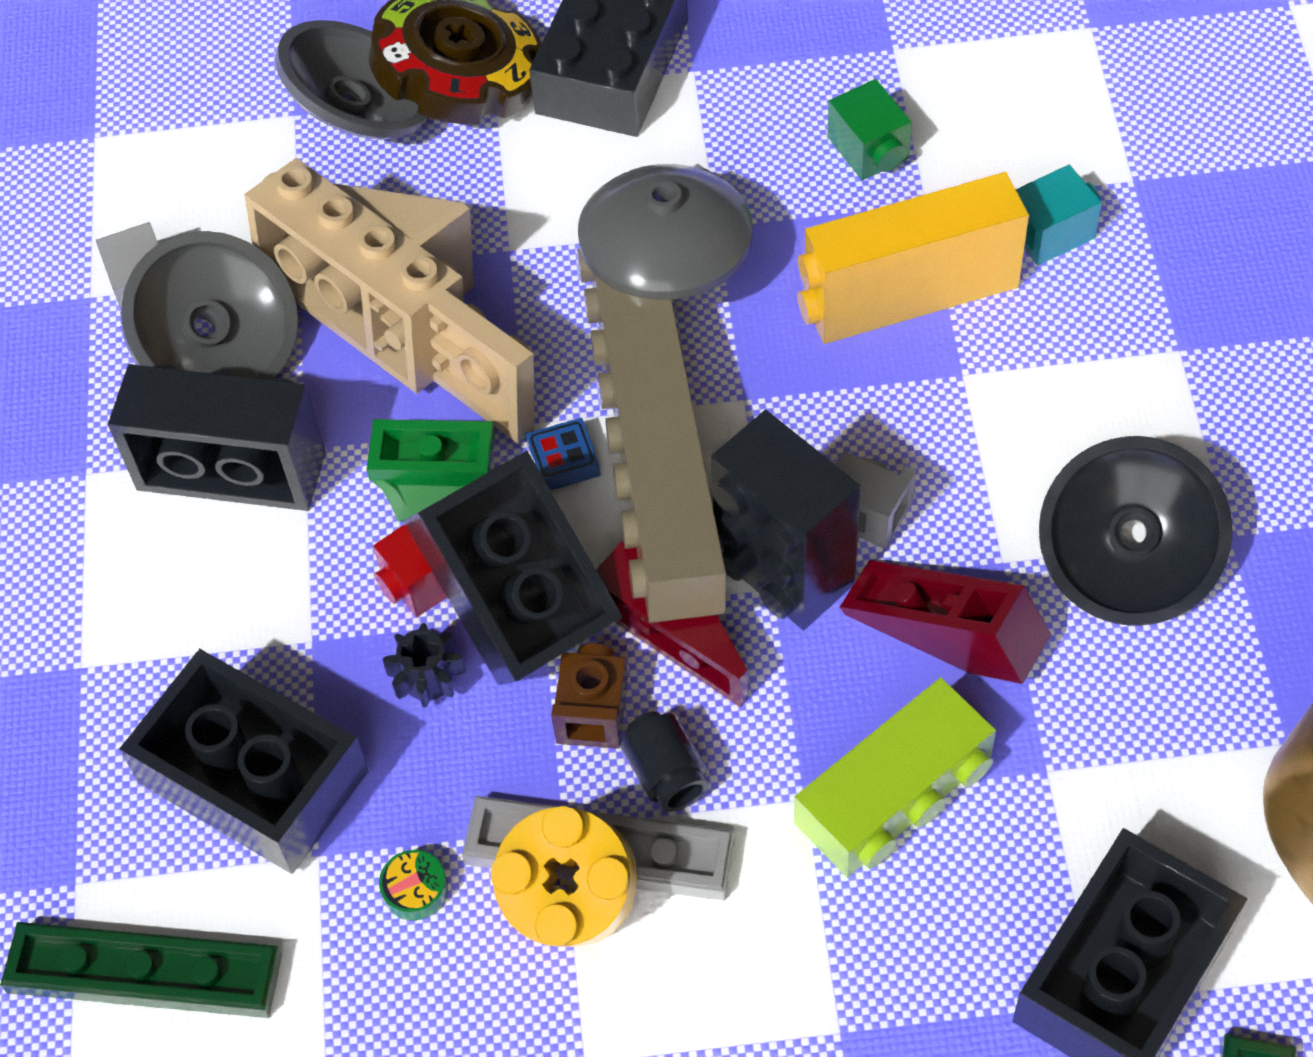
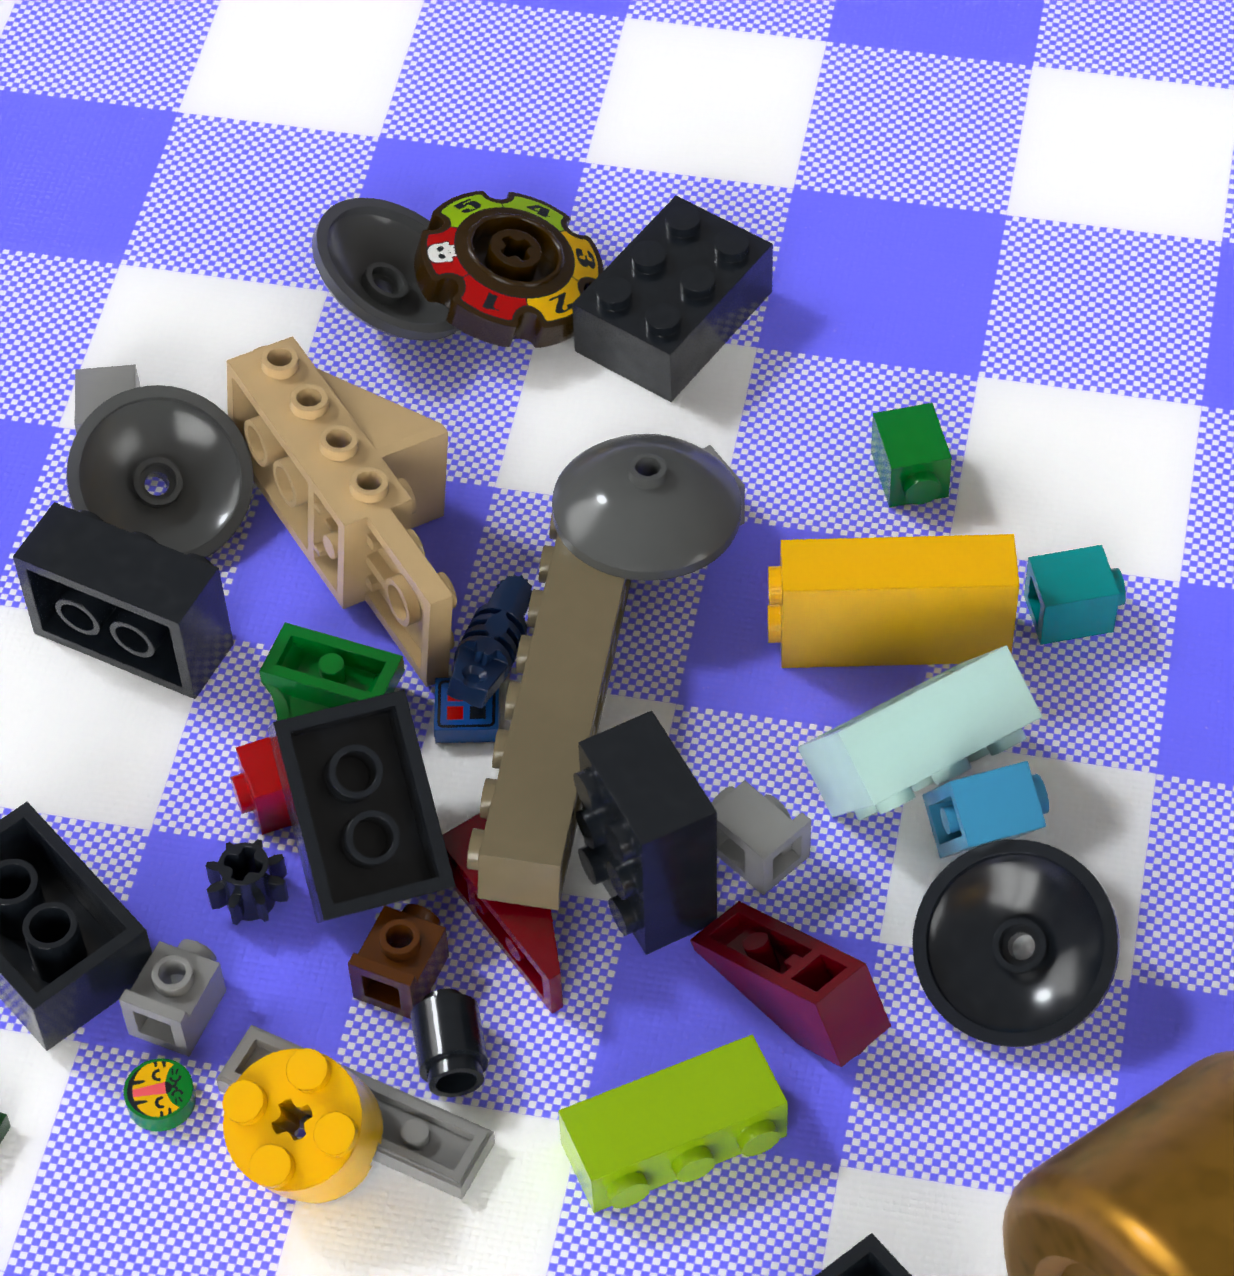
camera: 15 degrees right, 5 degrees down
(400, 806) = (174, 996): none -> light grey brick
(568, 389) = (490, 643): none -> dark blue hinge
(983, 369) = (922, 736): none -> light aqua brick
(1066, 420) = (986, 808): none -> dark azure brick

